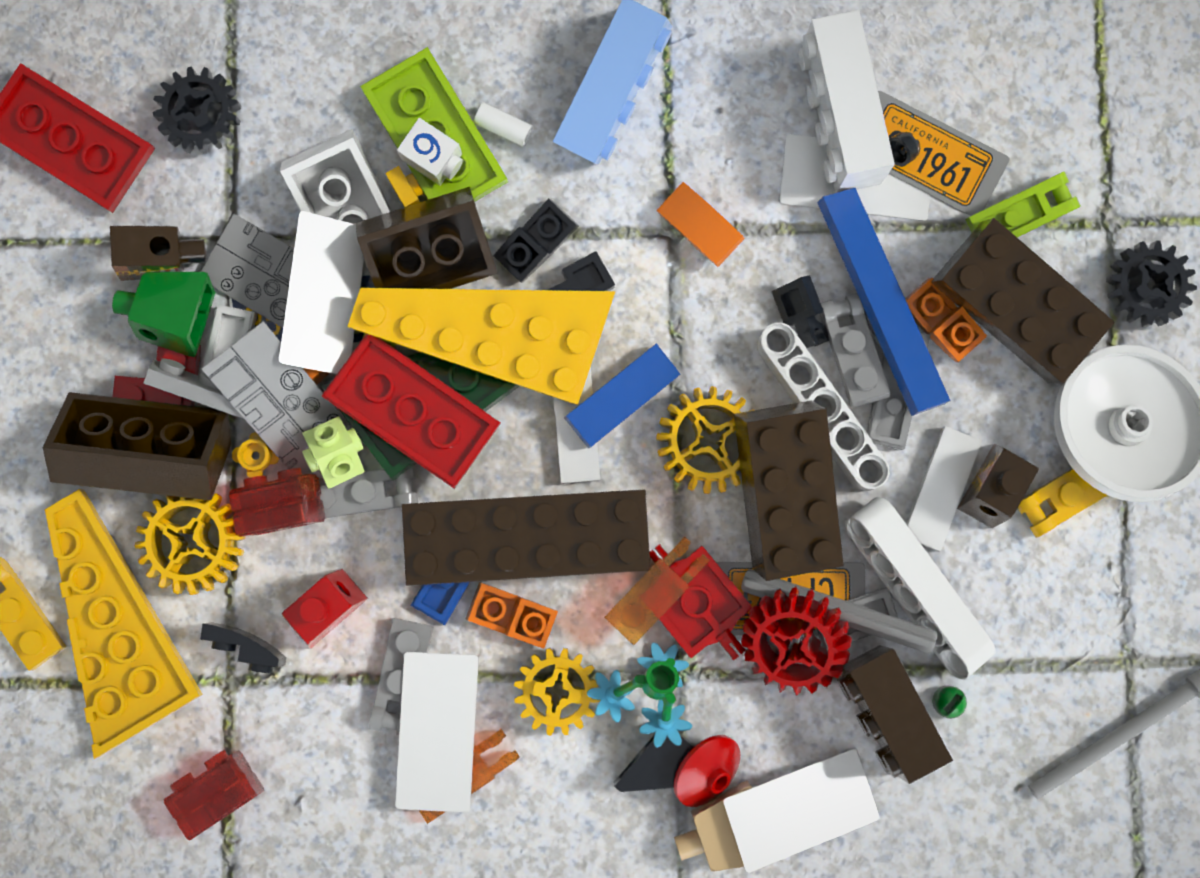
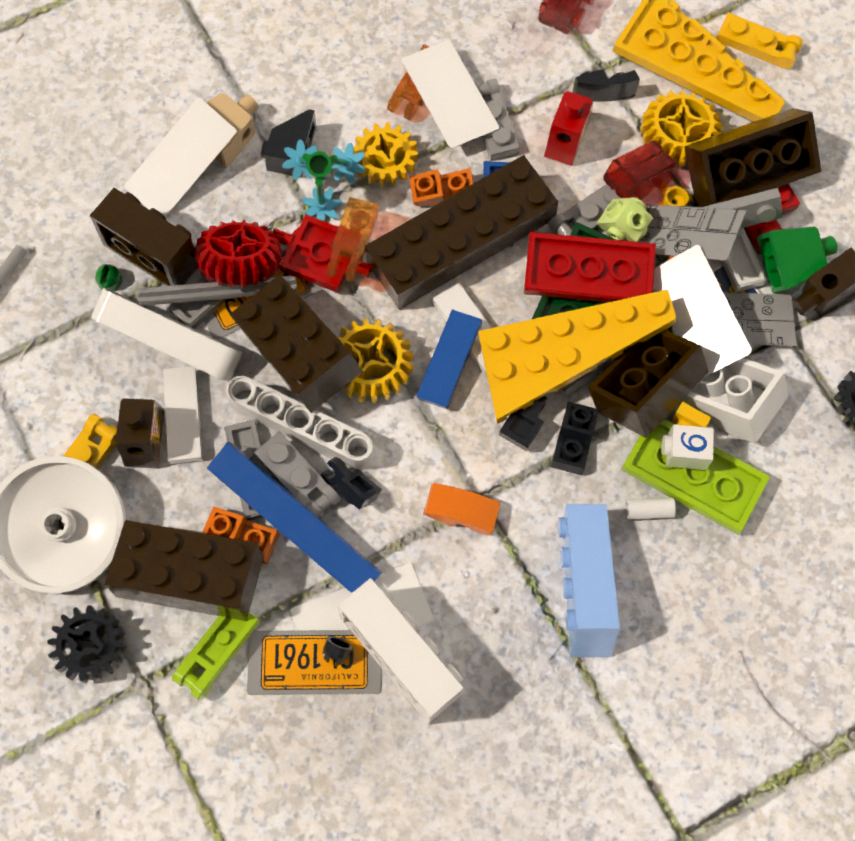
camera: 150 degrees right, 15 degrees down
(707, 770) = (256, 150): red dish -> none

